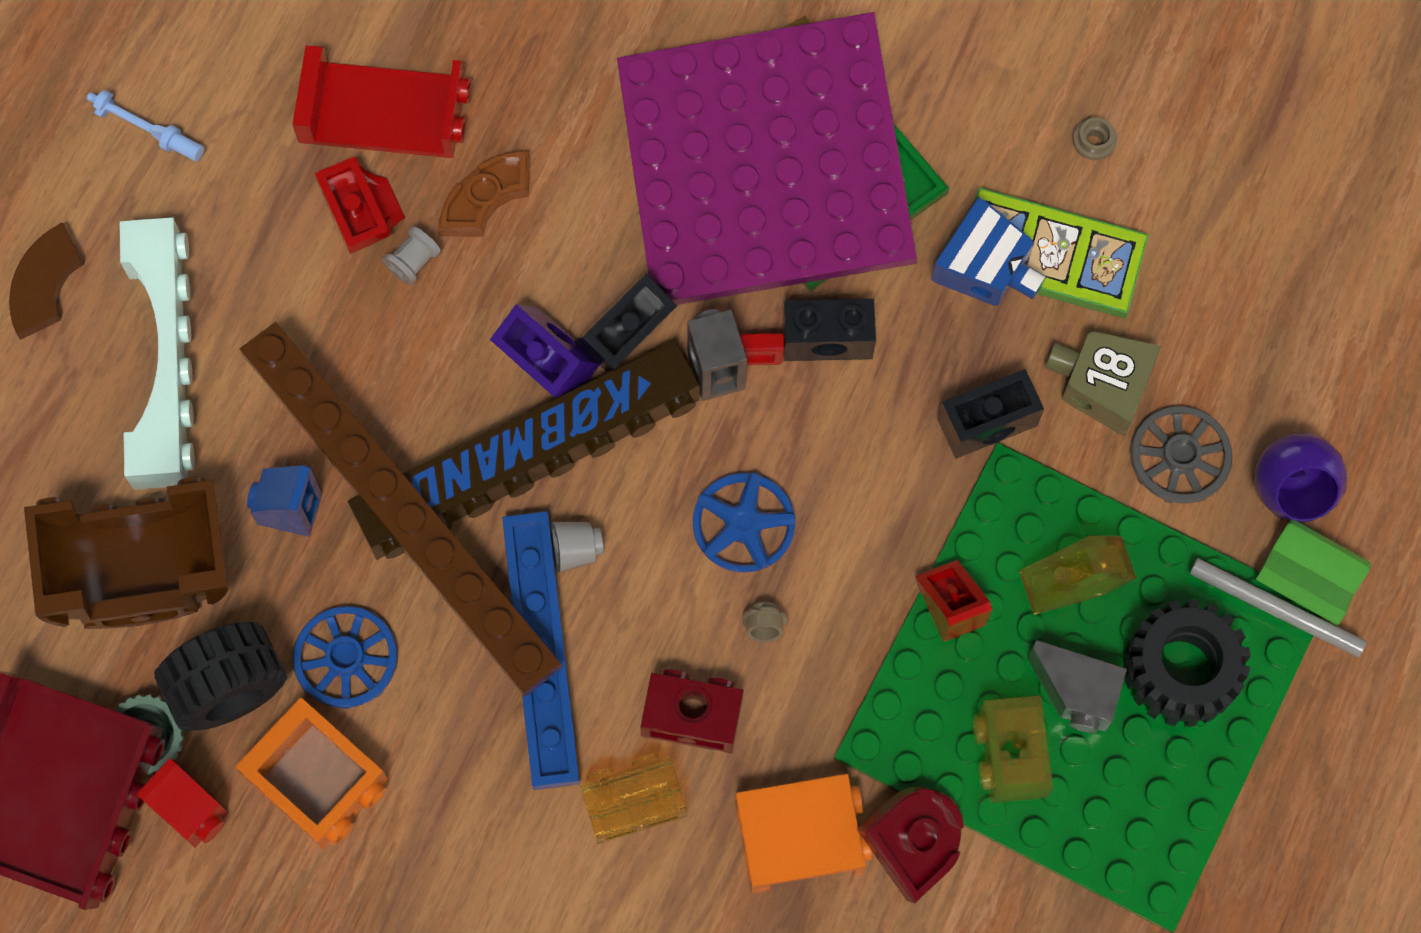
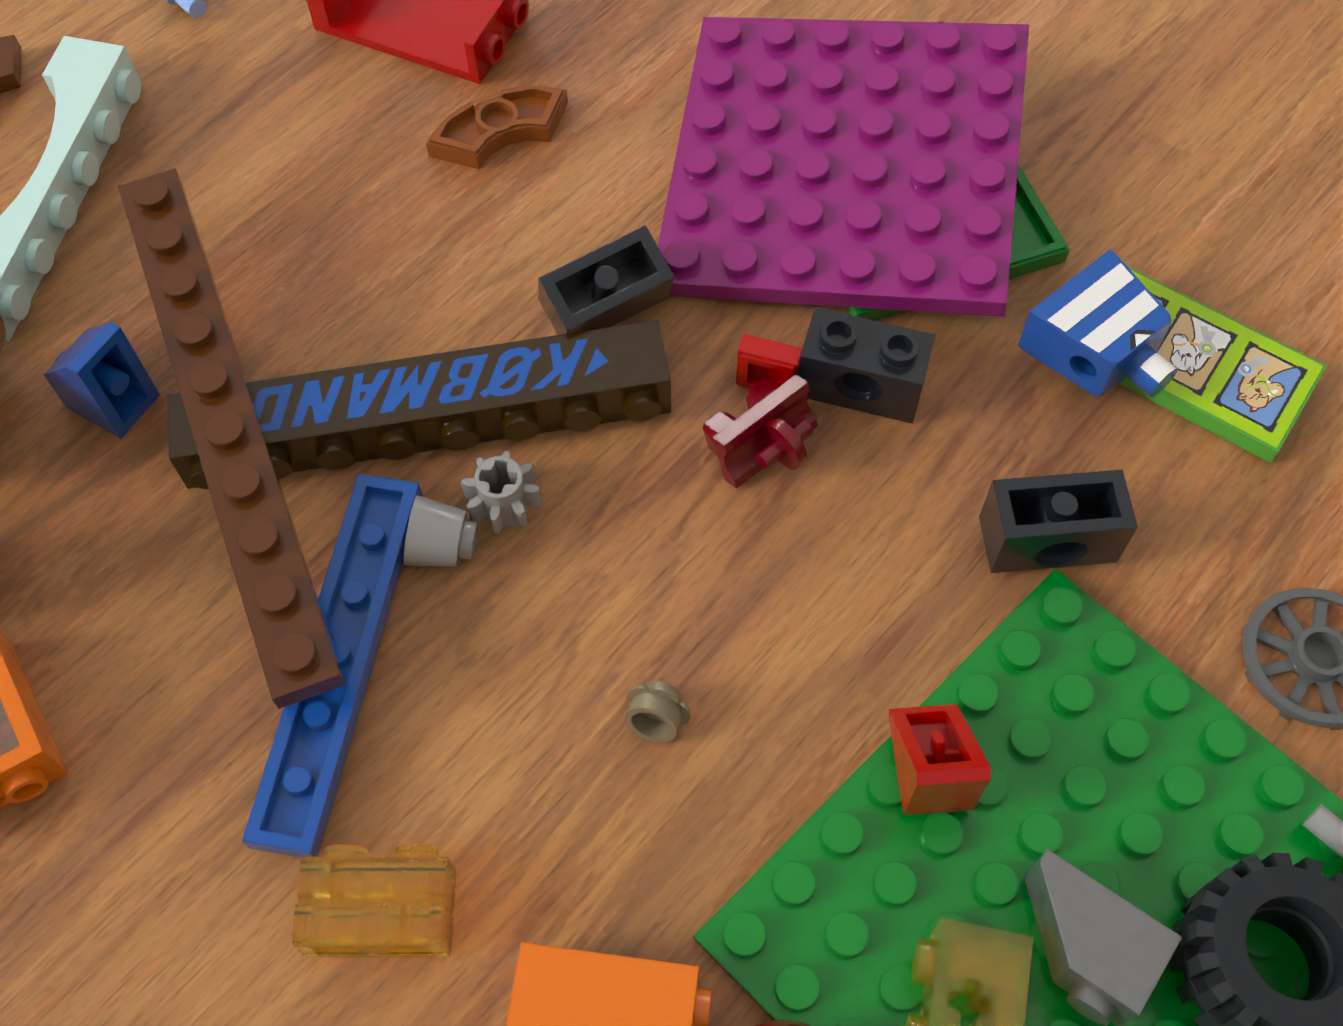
camera: 20 degrees right, 10 degrees down
(345, 657) = (89, 594): blue wheel -> none
(359, 203) = (346, 92): red slope -> none
(411, 255) = (382, 159): light grey bush -> none
(544, 350) = (489, 289): dark purple brick -> none
(603, 486) = (501, 492): none -> light grey gear
(711, 731) = (529, 838): dark red brick -> none
(716, 353) = (705, 348): flat silver brick -> none
(743, 522) = (674, 573): blue wheel -> none
(776, 404) = (766, 433): none -> dark red hips
(1077, 573) = (1134, 771): clear yellow slope -> none
(1099, 128) = (1276, 241): dark tan plate -> none
(1105, 377) = (1231, 522): olive torso -> none

